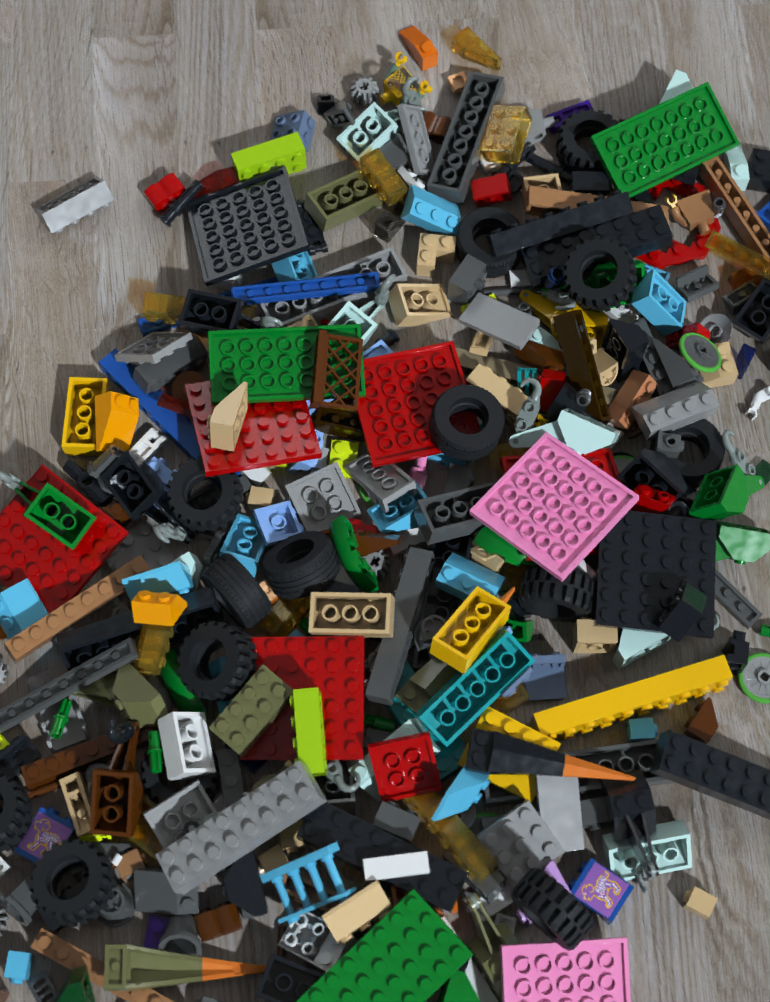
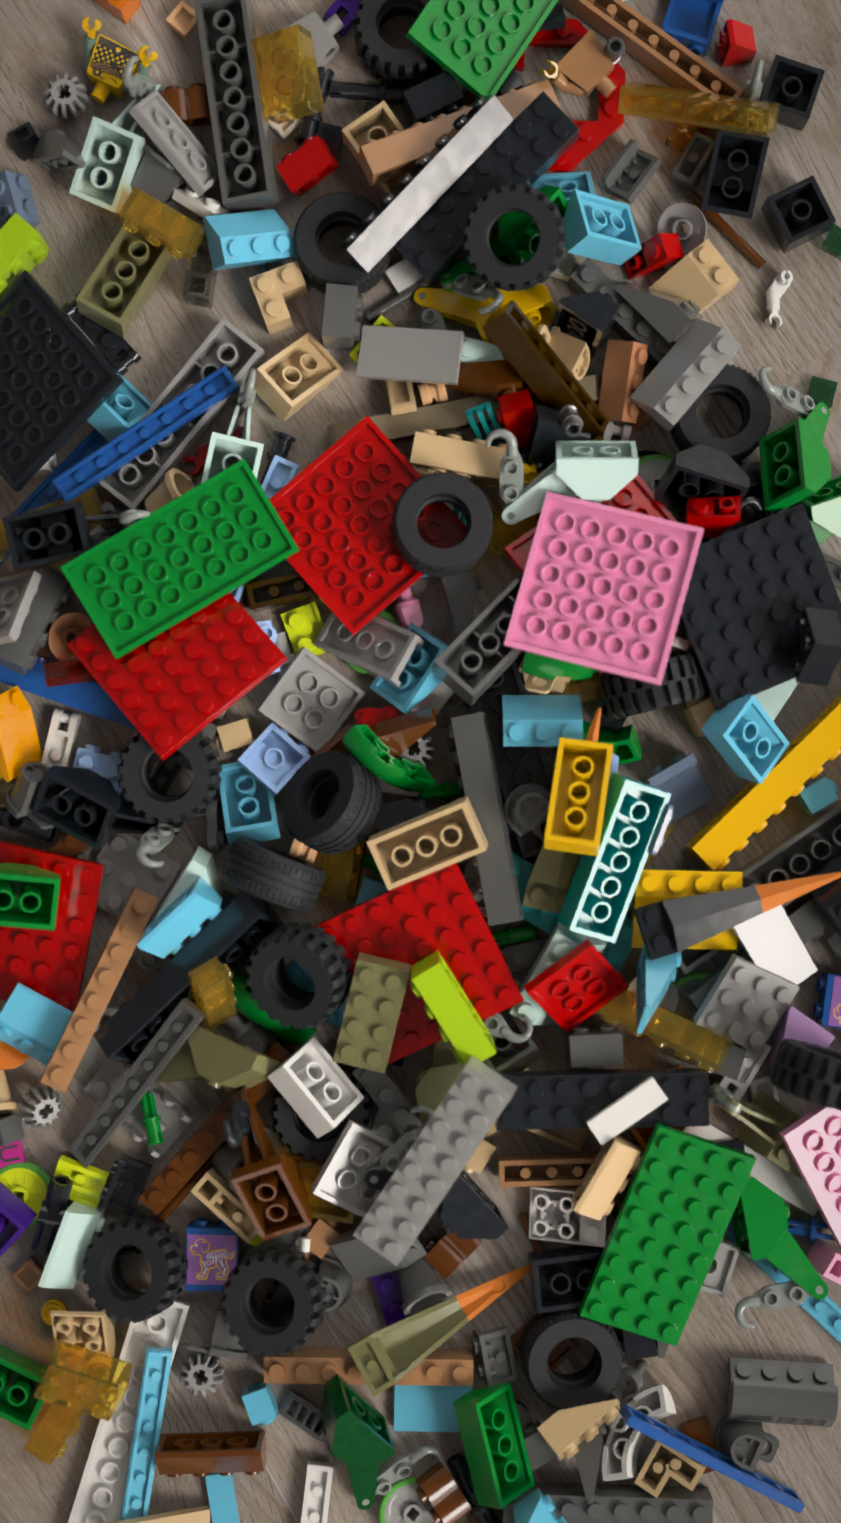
camera: 25 degrees left, 20 degrees up
(155, 751) = (283, 1111): green axle -> none
(157, 608) = (200, 960): light orange slope -> none
(228, 419) = (152, 678): tan slope -> none
(293, 870) = (526, 1151): medium azure fence -> none
(319, 371) = (227, 548): reddish brown fence -> none
(503, 352) = (432, 393): none -> light nougat wheel
(554, 277) = (455, 264): dark blue cone -> none
(607, 656) = (746, 738): none -> medium azure slope
(663, 444) = (692, 433): dark grey brick -> none
(700, 352) = (682, 277): dark grey wheel -> none
(741, 338) = (728, 231): none -> reddish brown bar
(743, 359) = (737, 254): clear blue slope -> none

